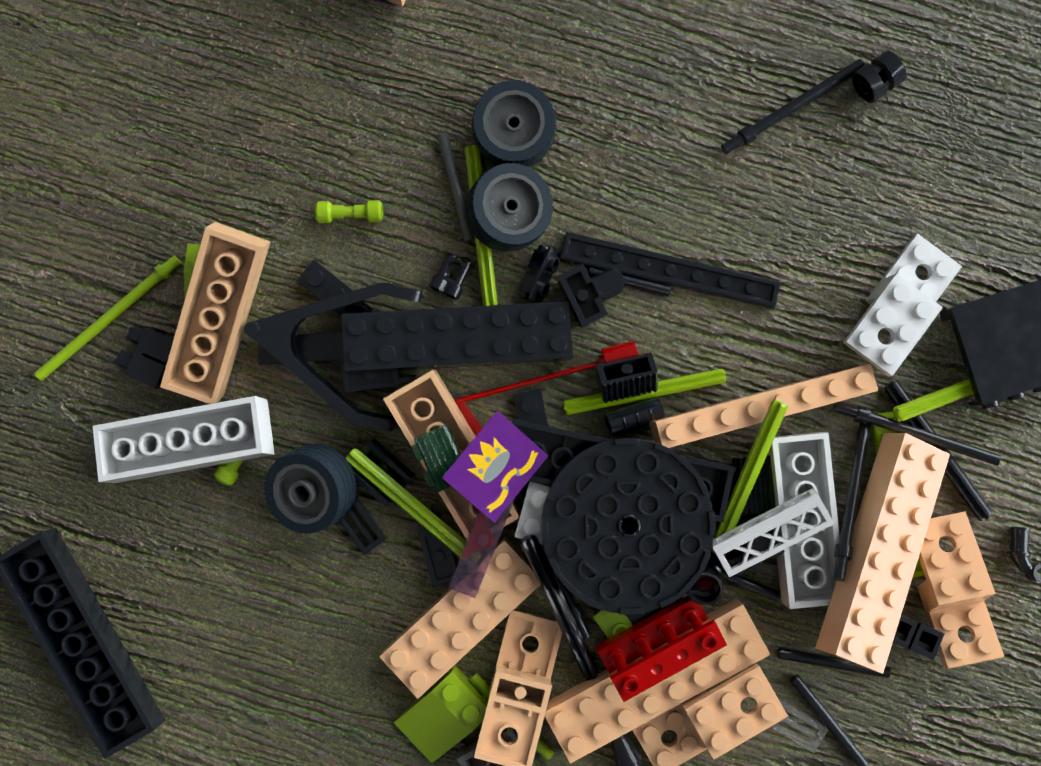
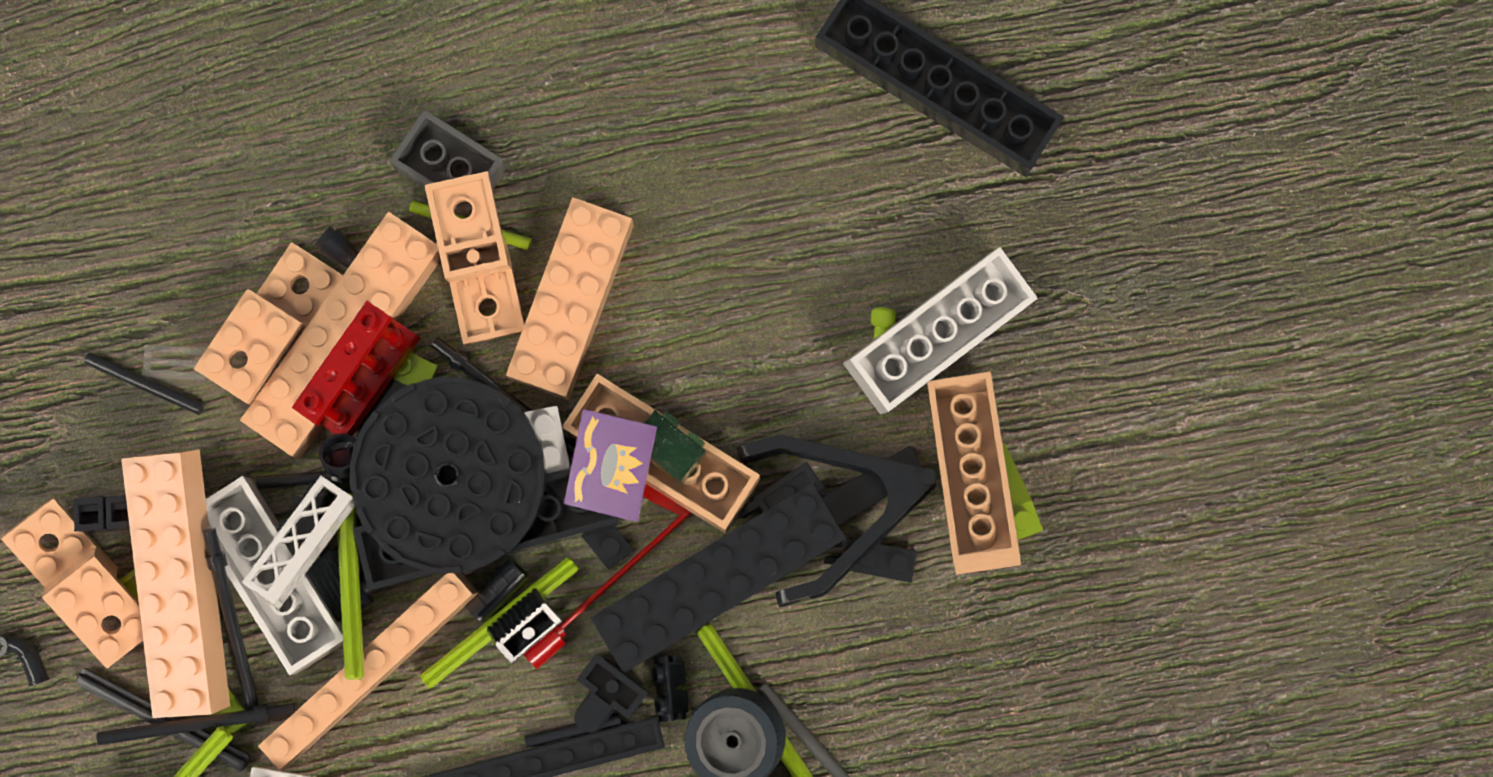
camera: 150 degrees right, 5 degrees down
(139, 364) = (1023, 410): black hips -> none
(162, 272) = (1060, 488): lime bar -> none
(310, 488) = (787, 348): wheel -> none
(326, 212) = (923, 638): lime piece -> none
(370, 520) = (717, 348): black tile -> none
(389, 464) = (728, 399): black bracket -> none
(406, 501) = (675, 382): lime axle -> none
(438, 557) = (630, 352): black hinge -> none
(443, 714) = (539, 192): lime slope -> none
(448, 286) = (756, 627): black piece -> none
(478, 553) = (585, 370): tile -> none
(559, 606) = (476, 358): black axle -> none
(827, 661) = (171, 444): black bar -> none

